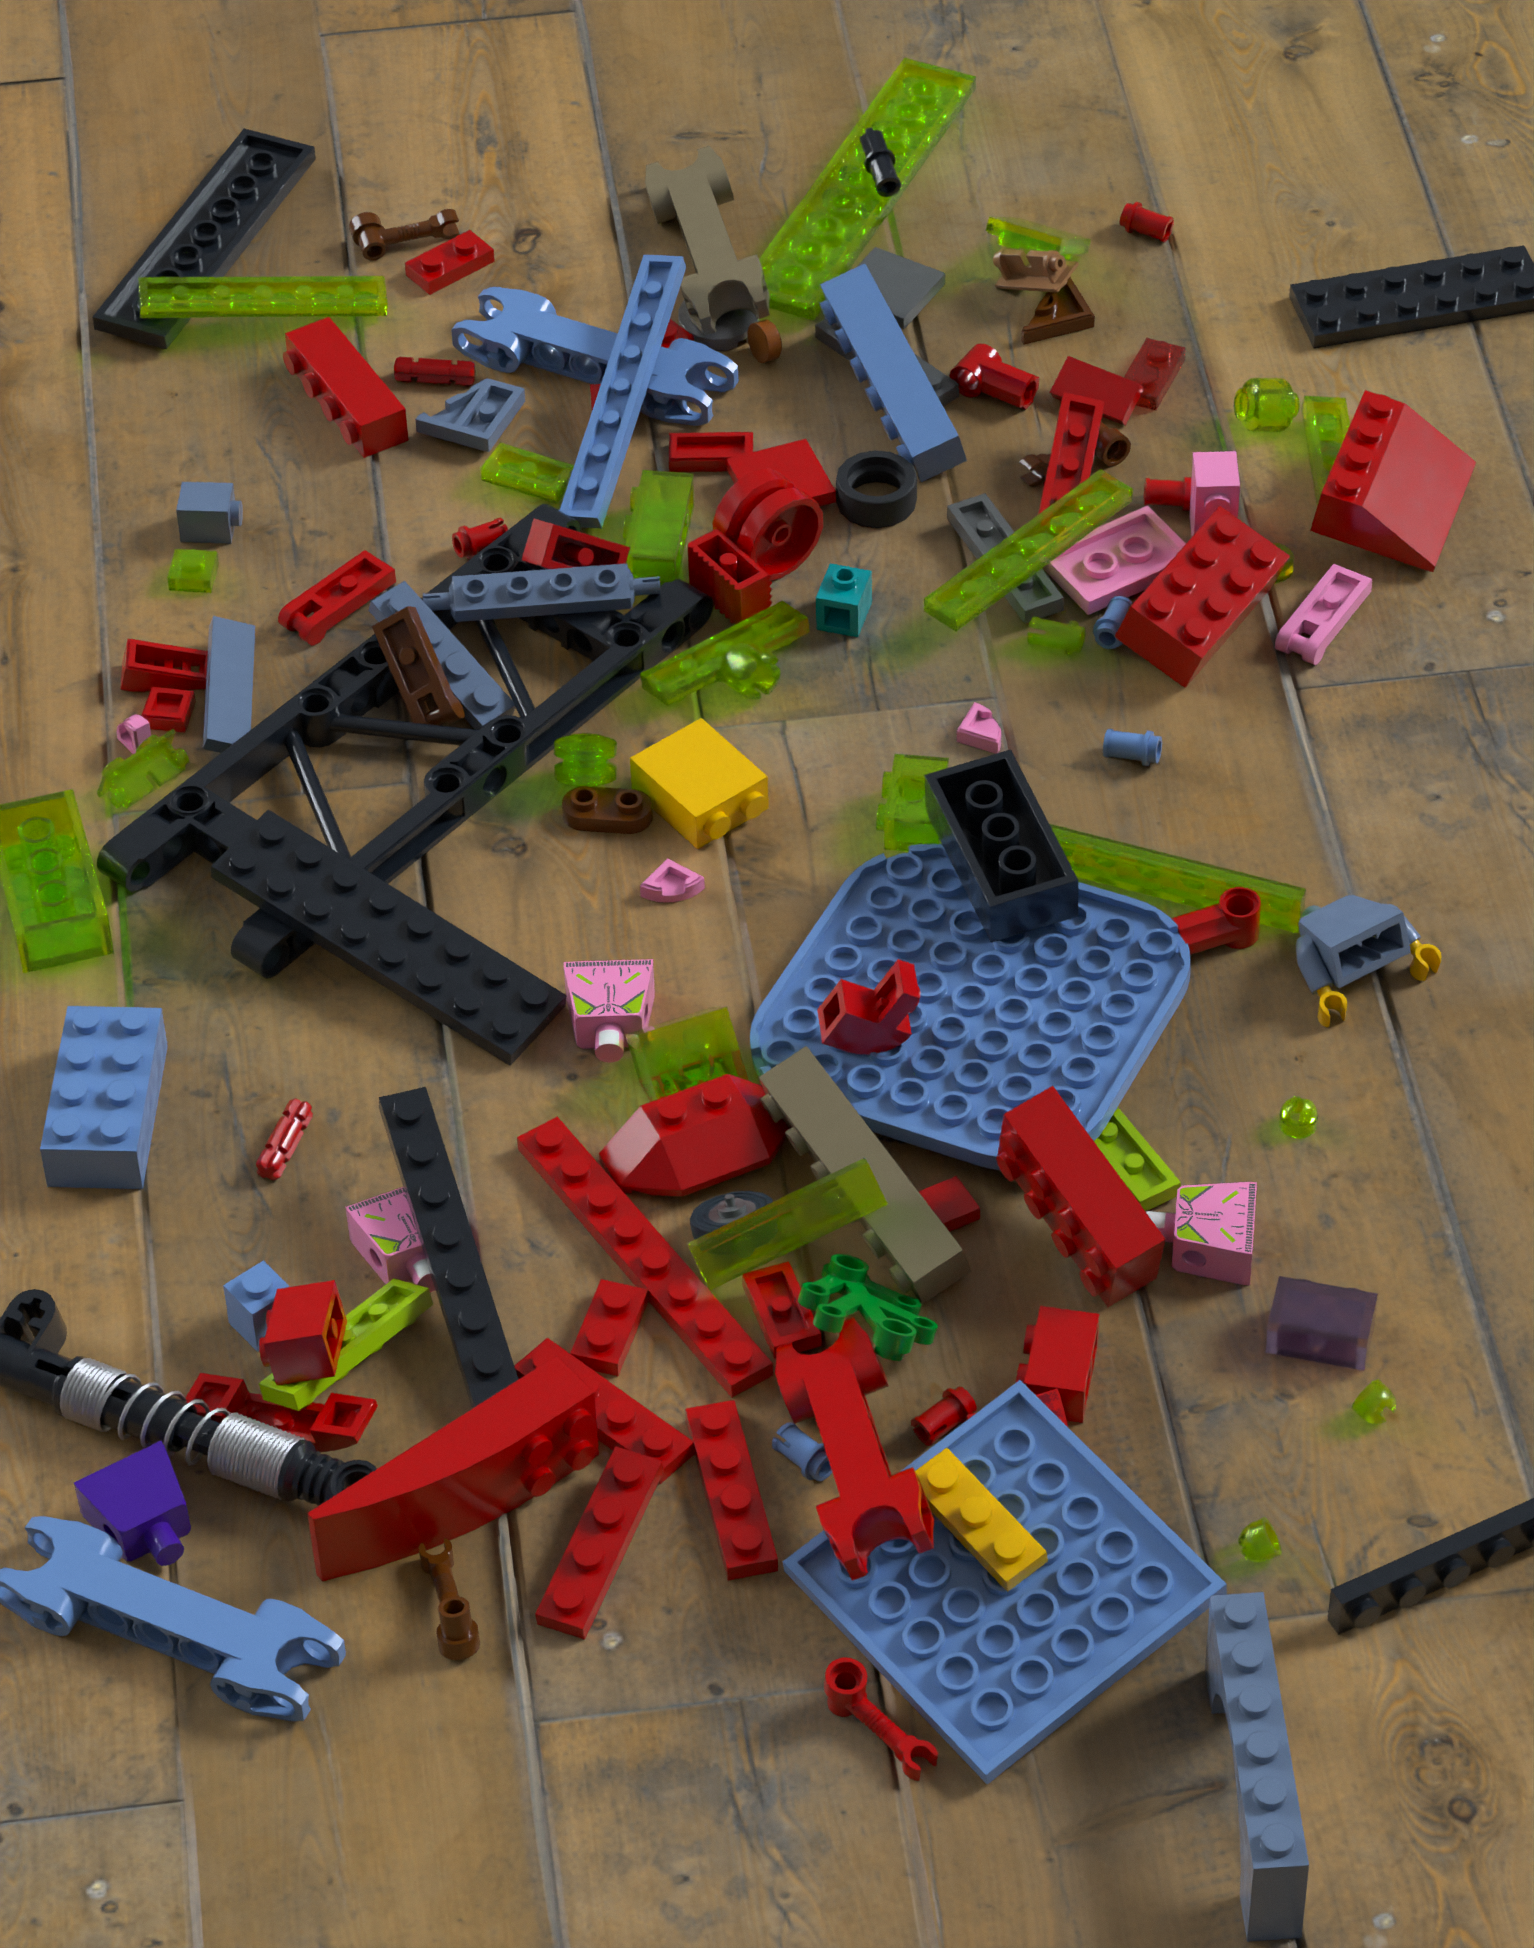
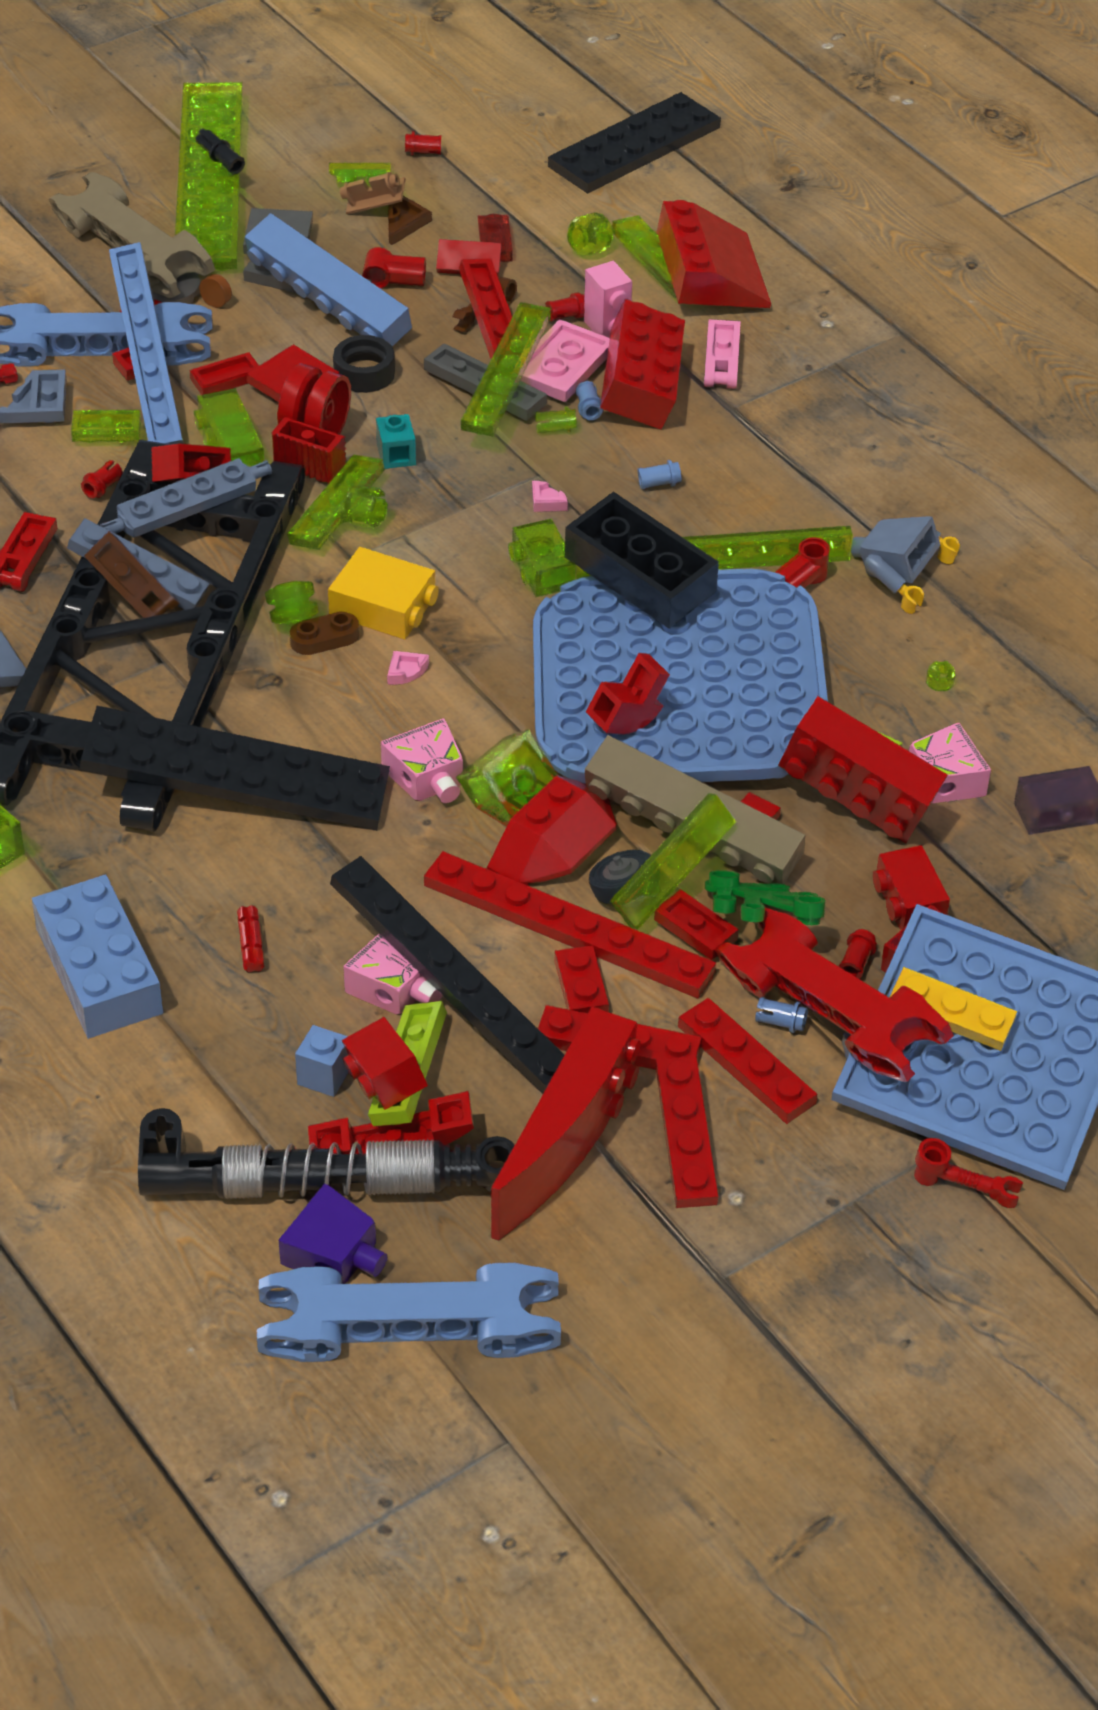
camera: 30 degrees left, 0 degrees up
(457, 1632) = (629, 1234): reddish brown brick -> none

